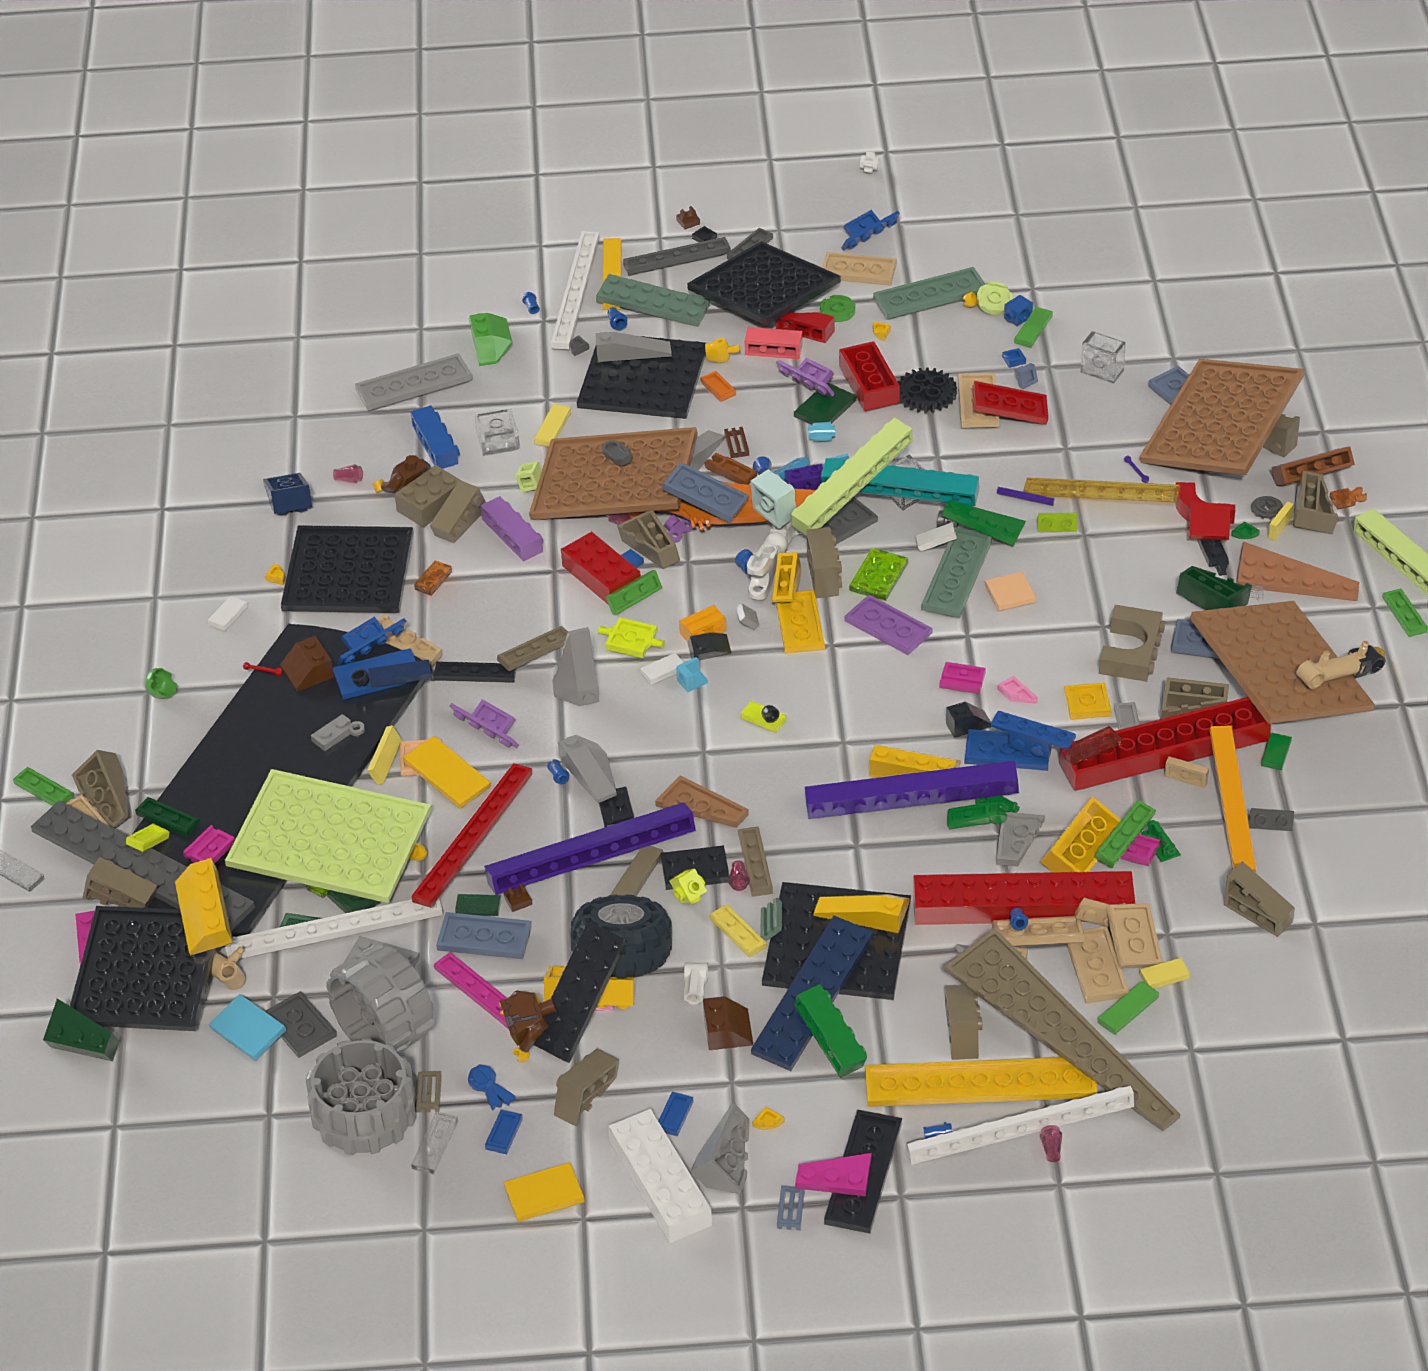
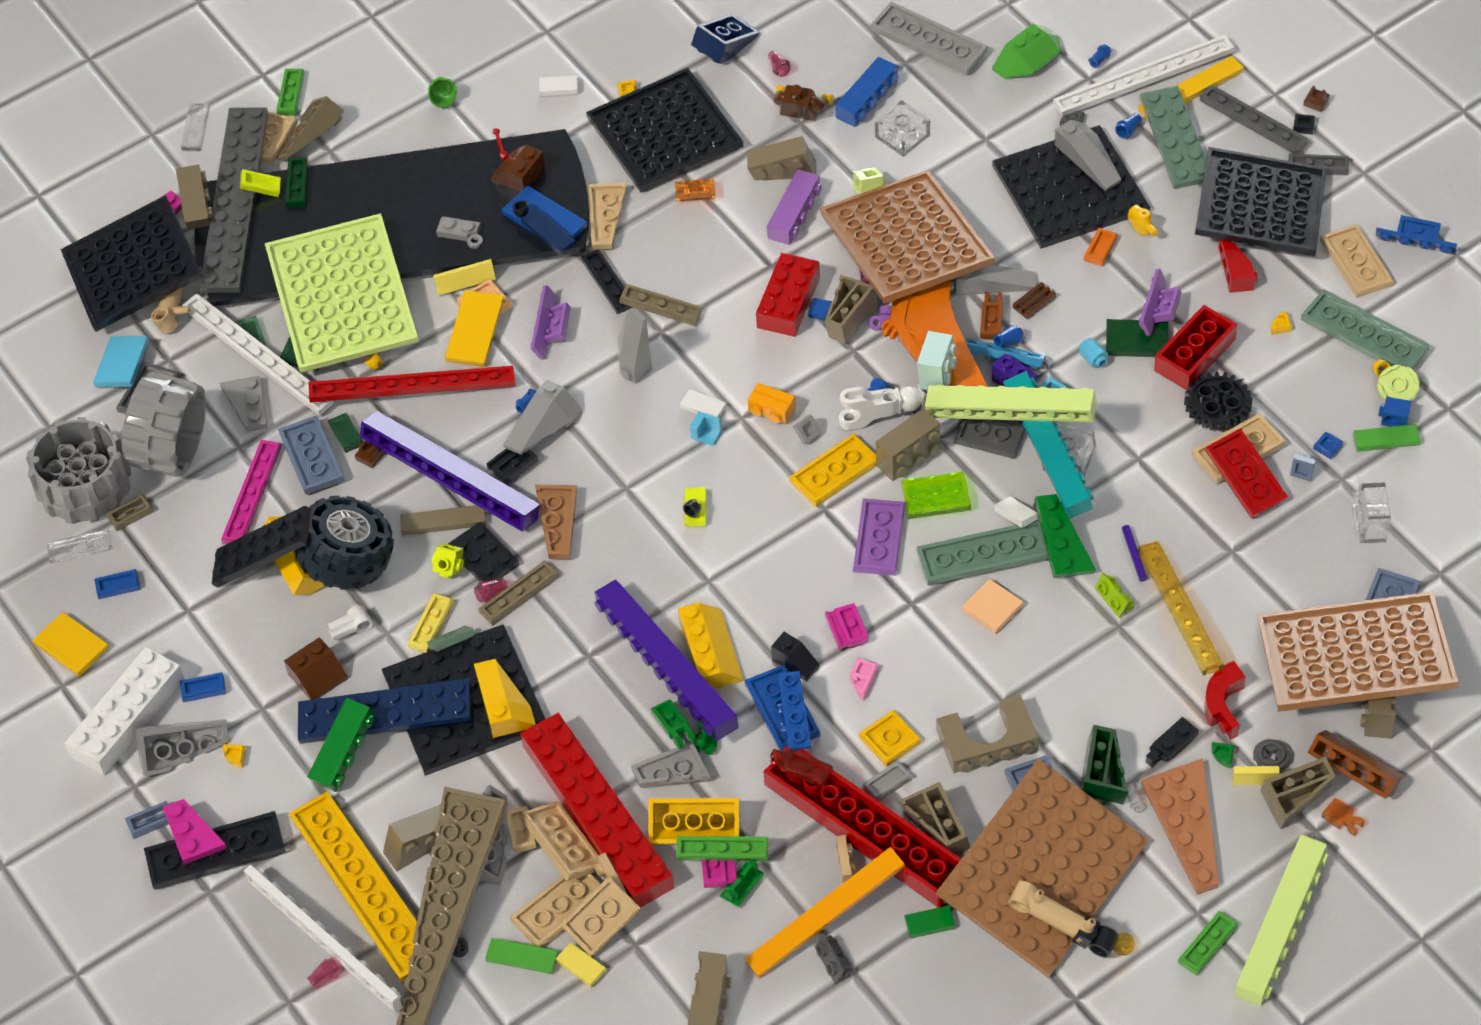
camera: 60 degrees right, 10 degrees up
(78, 1034) = (45, 264): dark green wedge -> none
(203, 907) = (193, 260): yellow slope -> none
(209, 844) = (277, 225): dark pink plate -> none
(366, 636) = (576, 185): blue bracket -> none
(425, 495) = (788, 123): dark tan brick -> none
(483, 1079) = (158, 540): blue piece -> none
(525, 1020) = (218, 528): reddish brown torso -> none
(552, 424) = (952, 161): light yellow tile -> none
(583, 1083) = (189, 607): dark tan wedge -> none
(617, 453) = (927, 222): dark grey tile -> none
(631, 637) = (722, 362): neon yellow plate -> none
(633, 592) = (777, 333): bright green tile -> none
(705, 492) = (909, 308): sand blue plate -> none
(708, 645) = (746, 421): black slope -> none
(773, 343) = (1188, 253): coral brick -> none
(786, 577) = (867, 430): yellow slope -> none
(838, 306) = (1284, 275): bright green tile -> none
(933, 1131) = (291, 886): blue pin -> none
(1018, 919) = (553, 818): blue pin -> none
(1145, 479) = (1237, 634): dark purple hinge -> none
(1210, 521) = (1197, 714): red tile -> none

